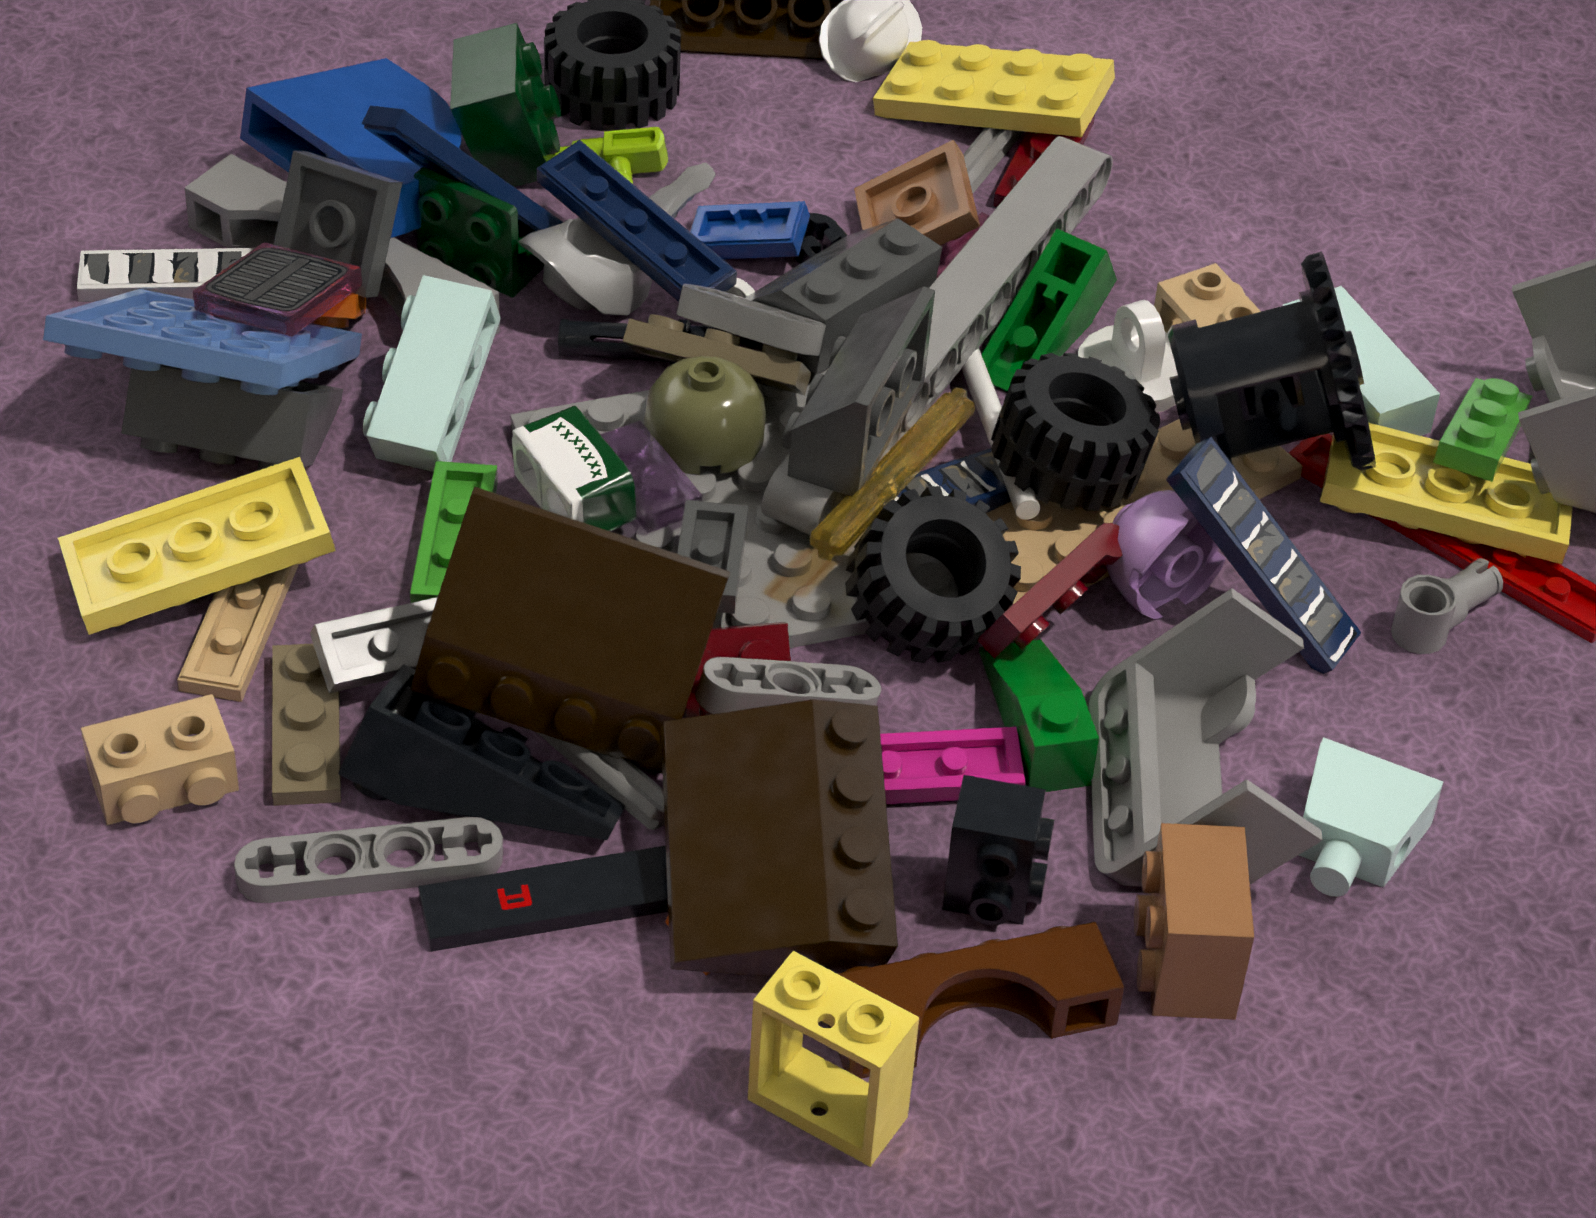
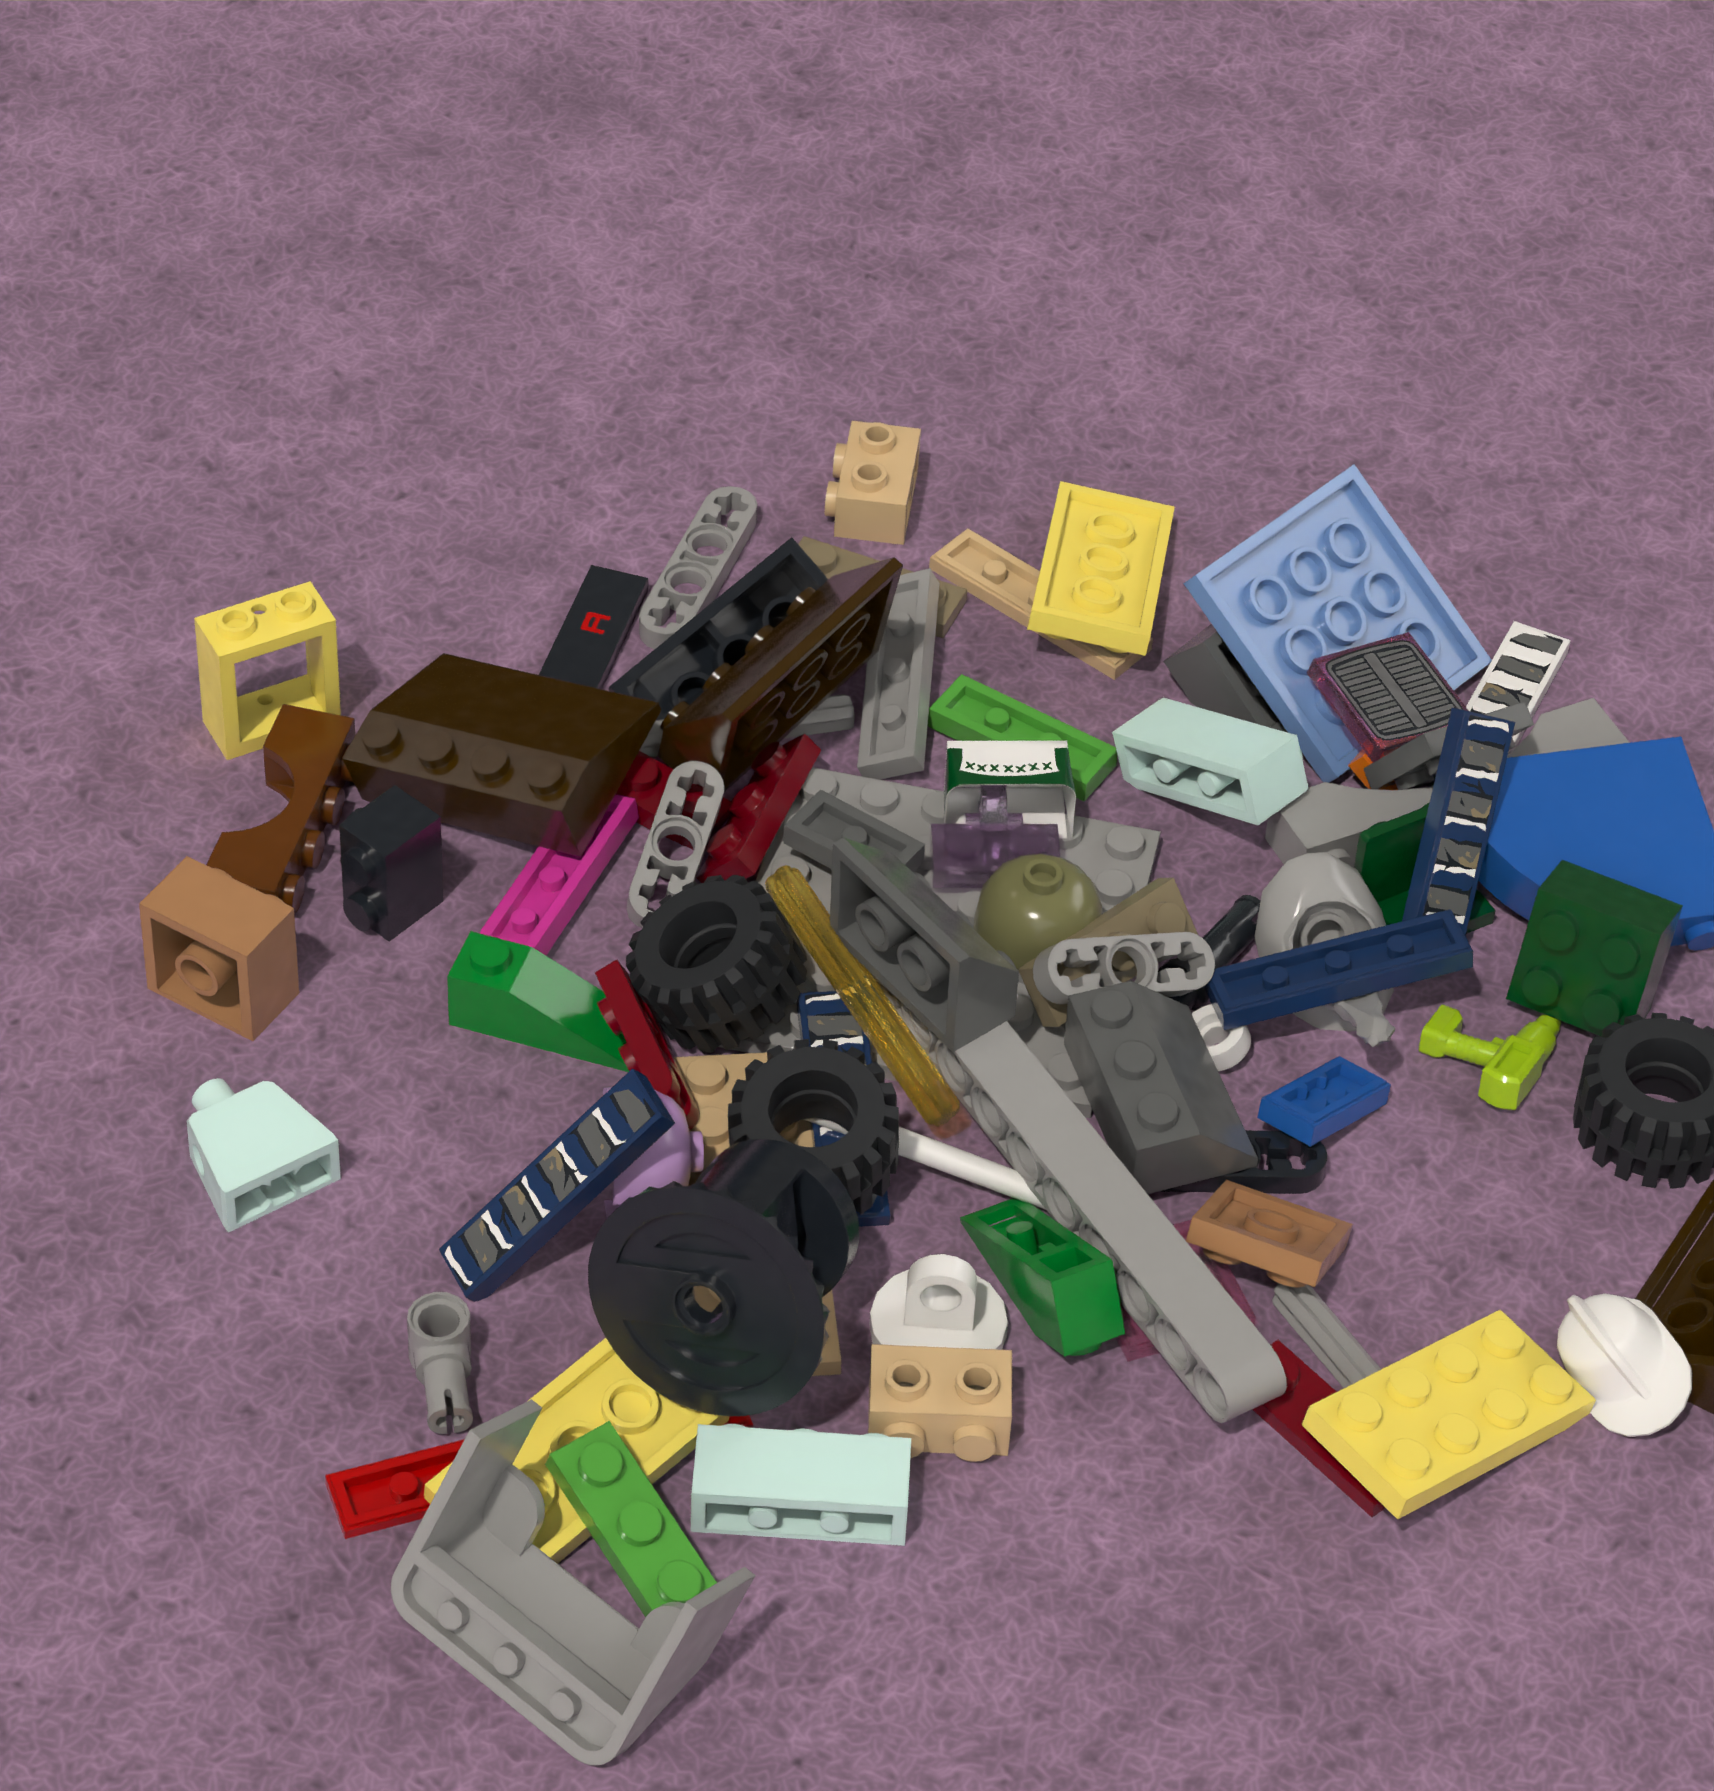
camera: 120 degrees right, 0 degrees up
(1162, 735) = (377, 1046): light grey windscreen -> none

